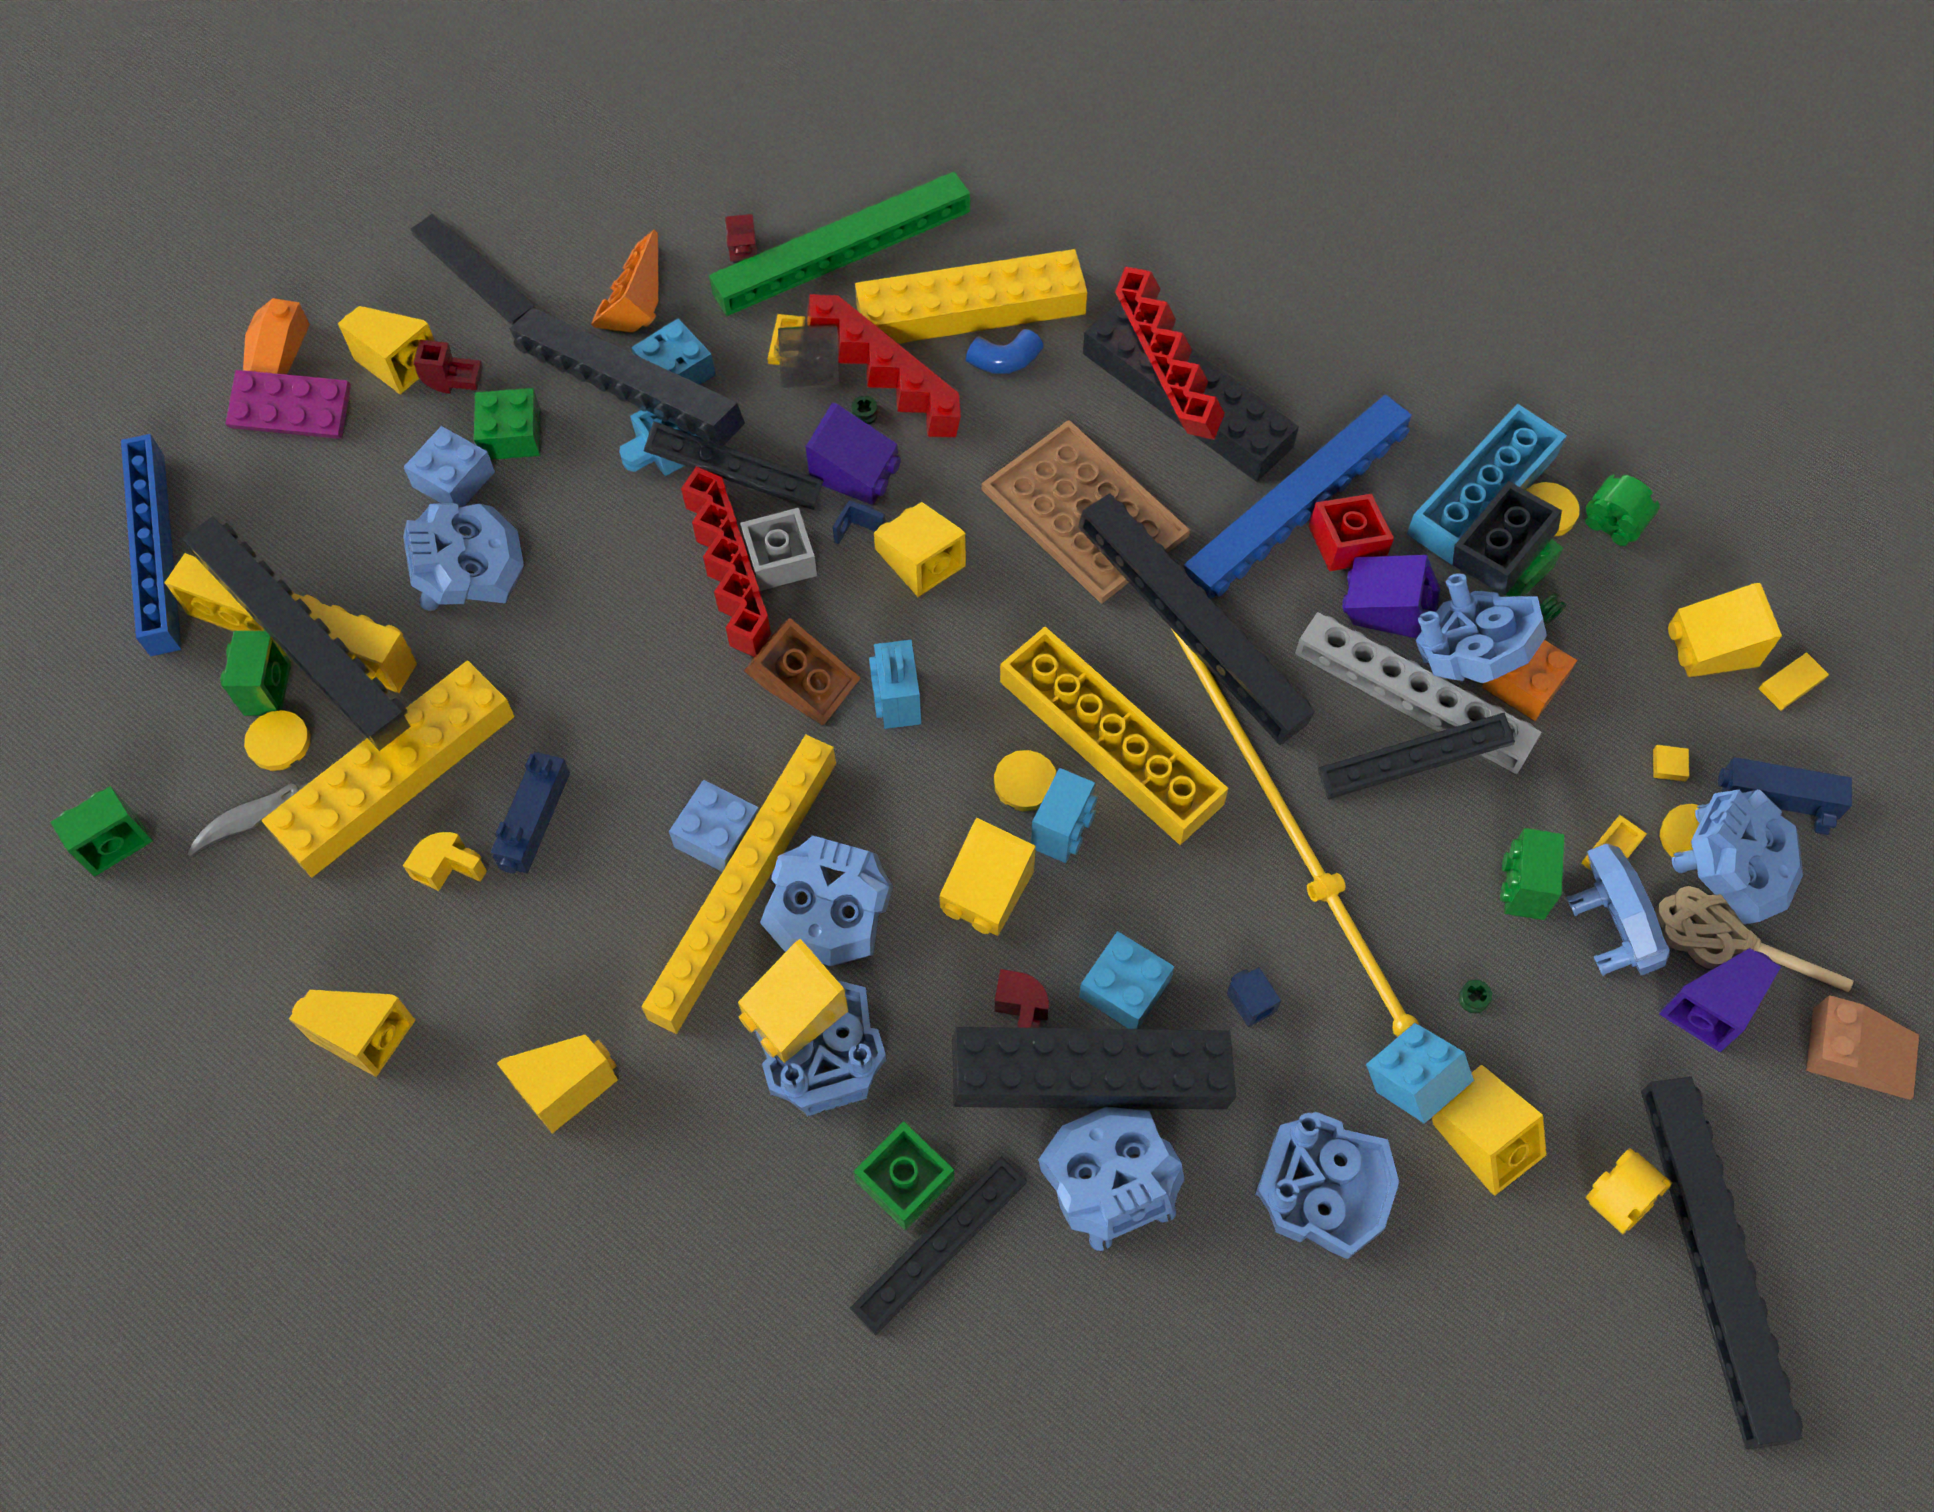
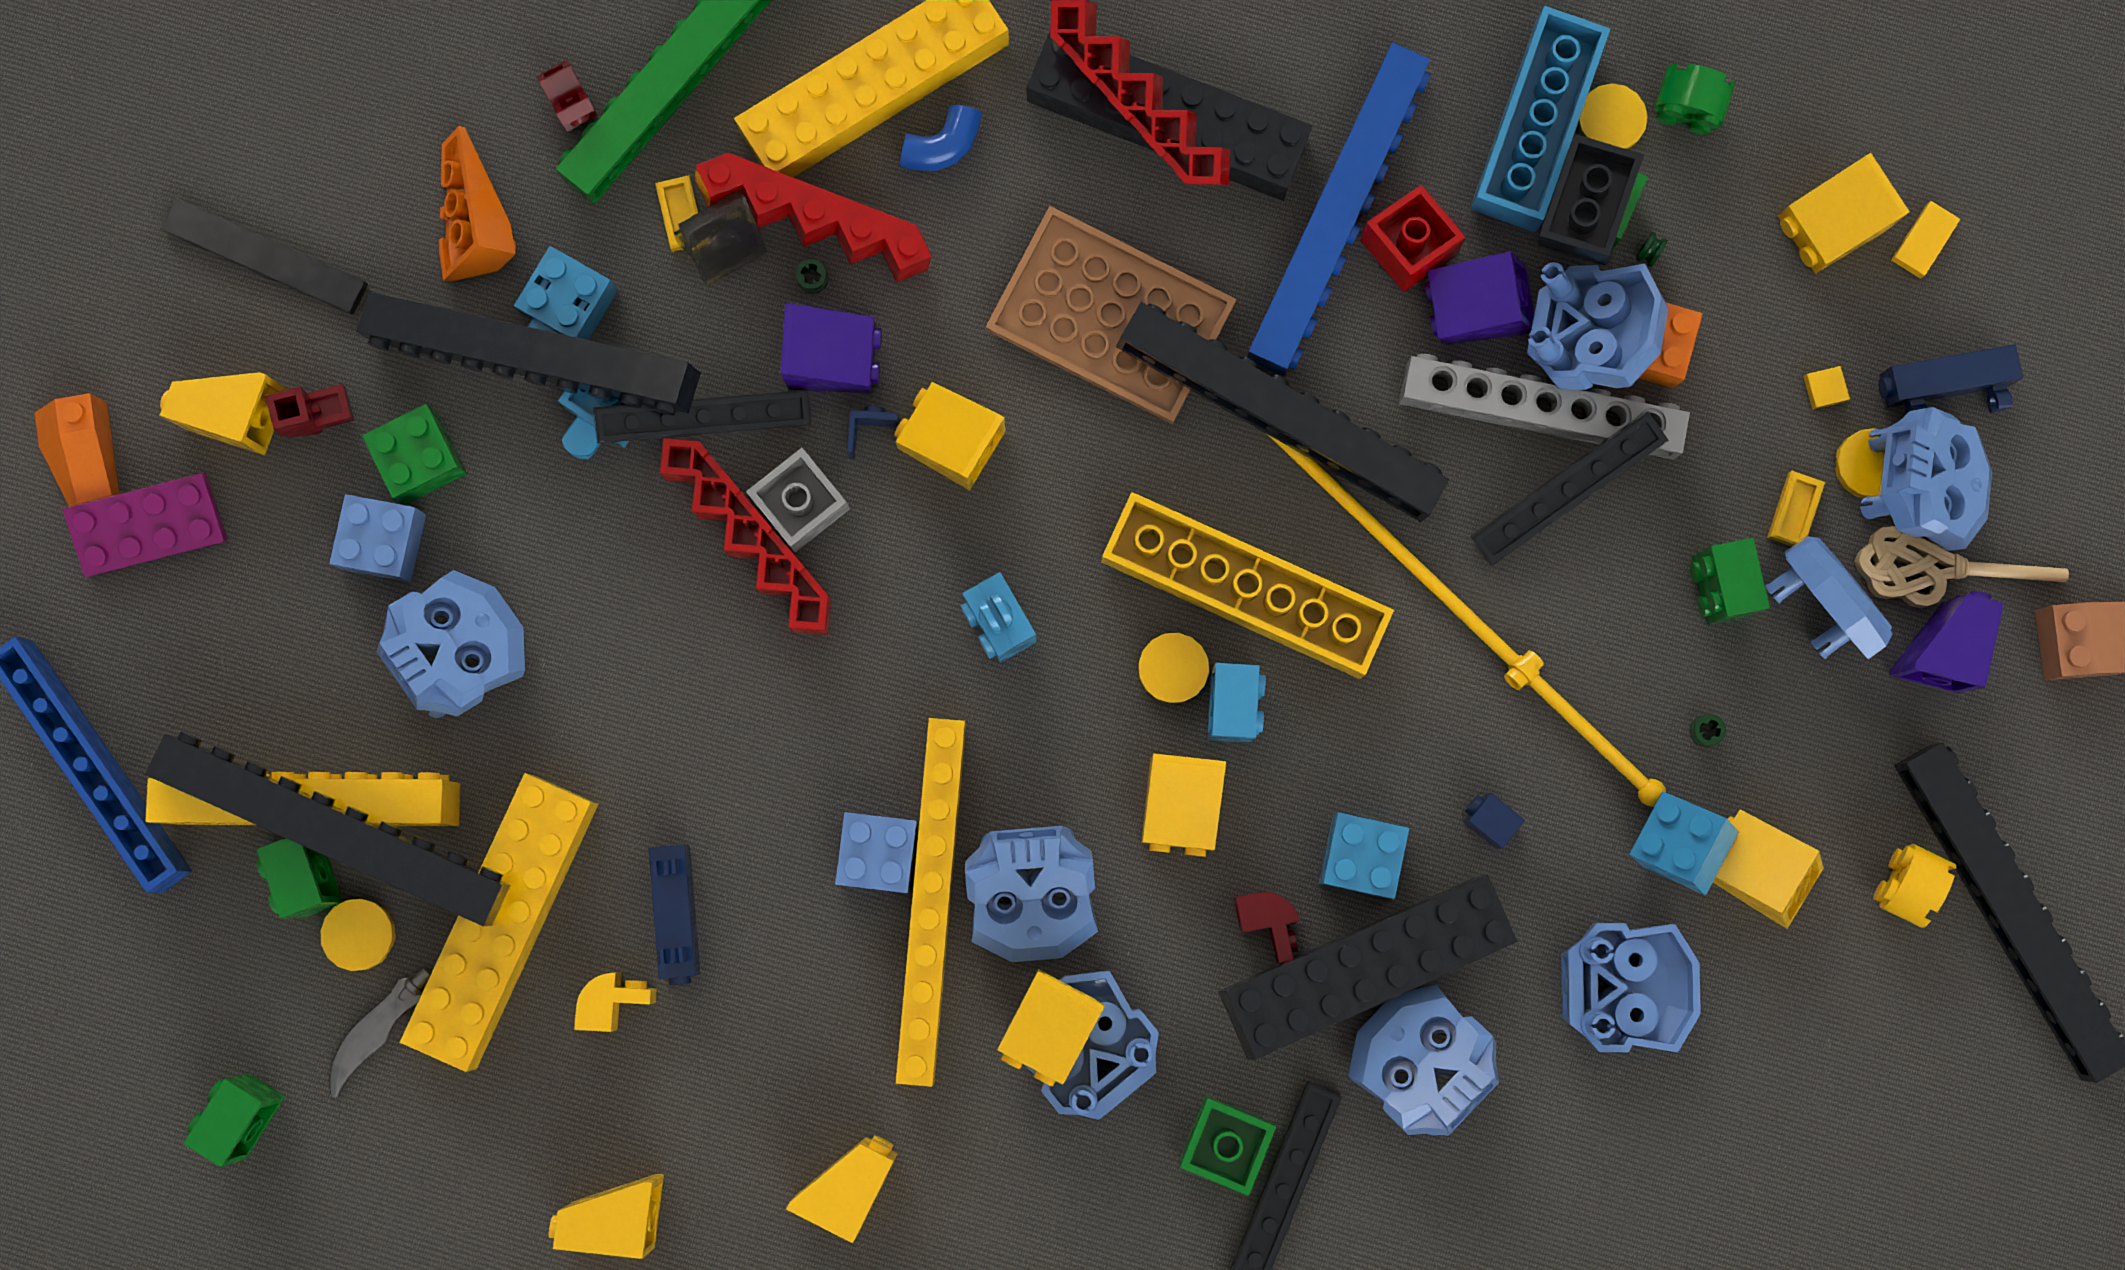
camera: 25 degrees left, 20 degrees up
(802, 672) = (887, 637): dark orange slope -> none

